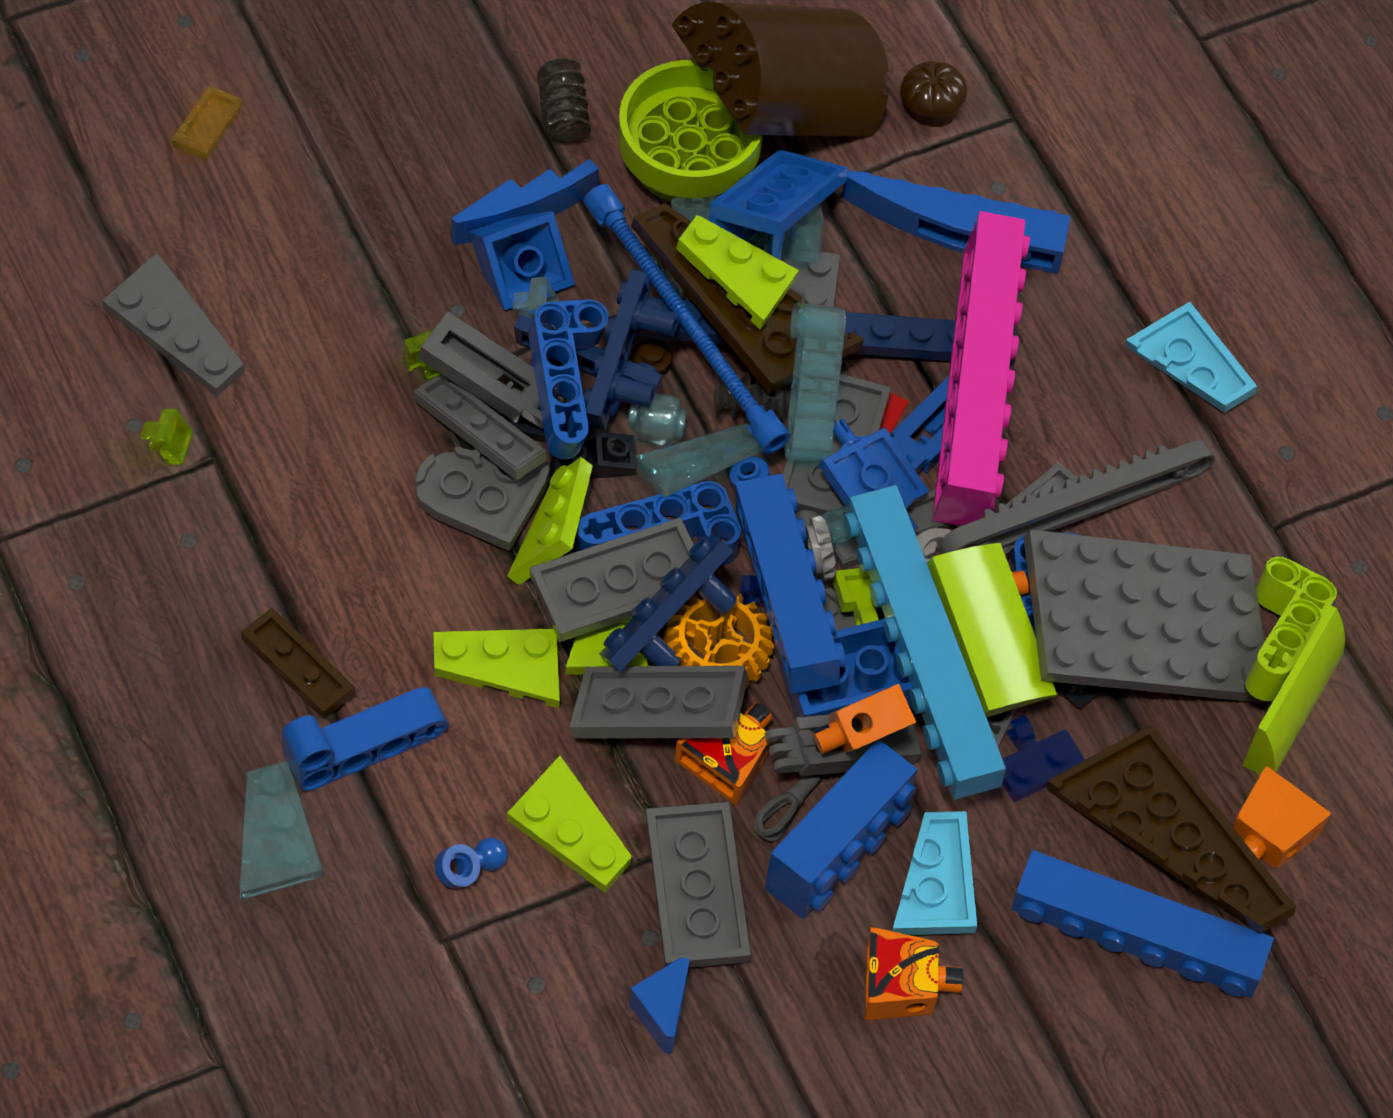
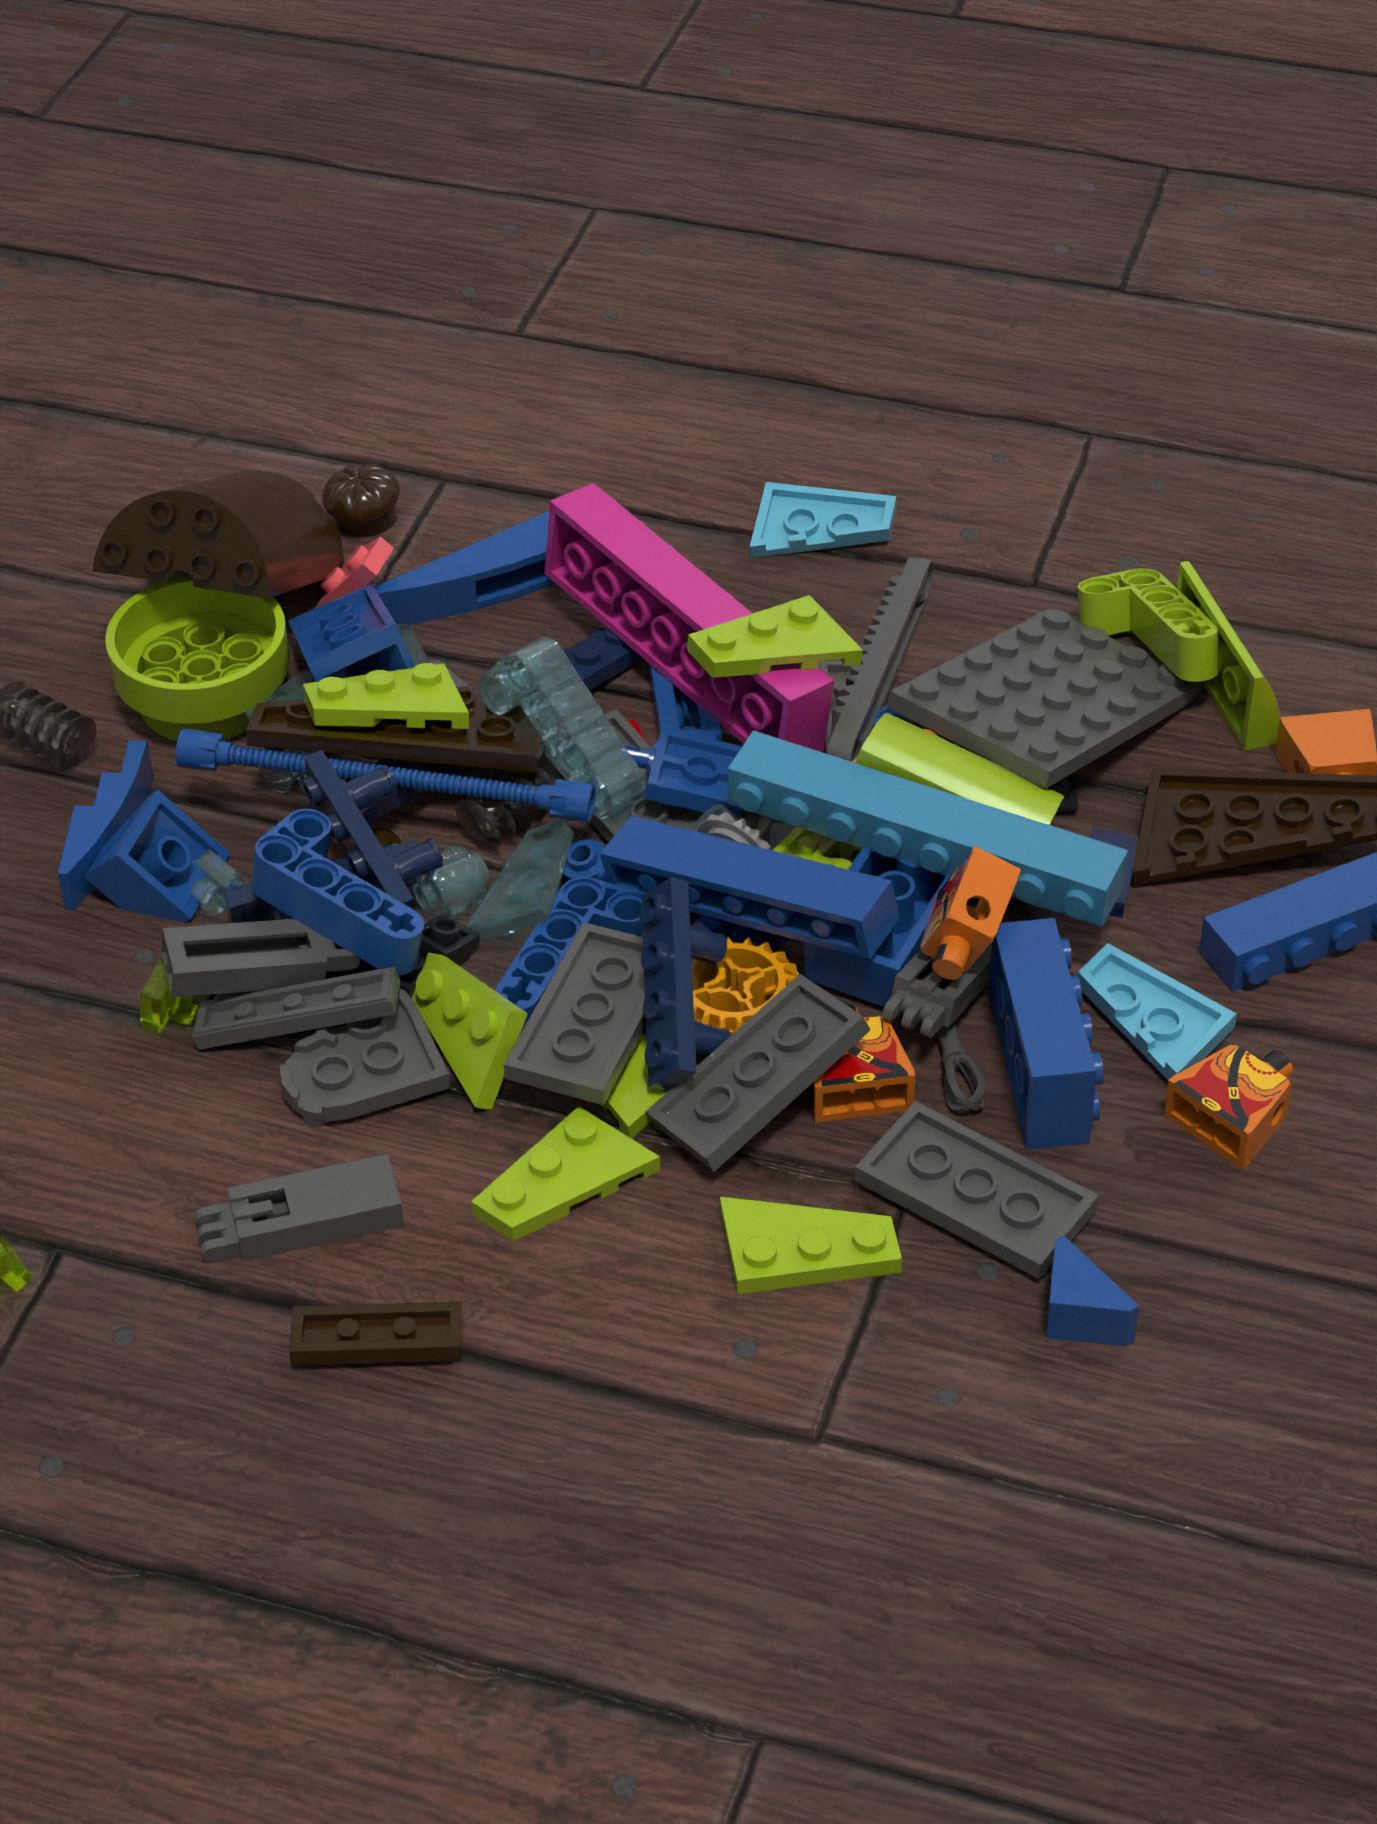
camera: 40 degrees left, 15 degrees down
(275, 834) = (549, 1492): clear light blue wing -> none
(356, 560) = (301, 1211): none -> dark grey hinge
(361, 740) = (510, 1369): blue beam -> none
(488, 854) = (756, 1353): blue plate -> none
(855, 150) = (357, 570): none -> coral wing
(993, 434) = (775, 636): none -> lime wing

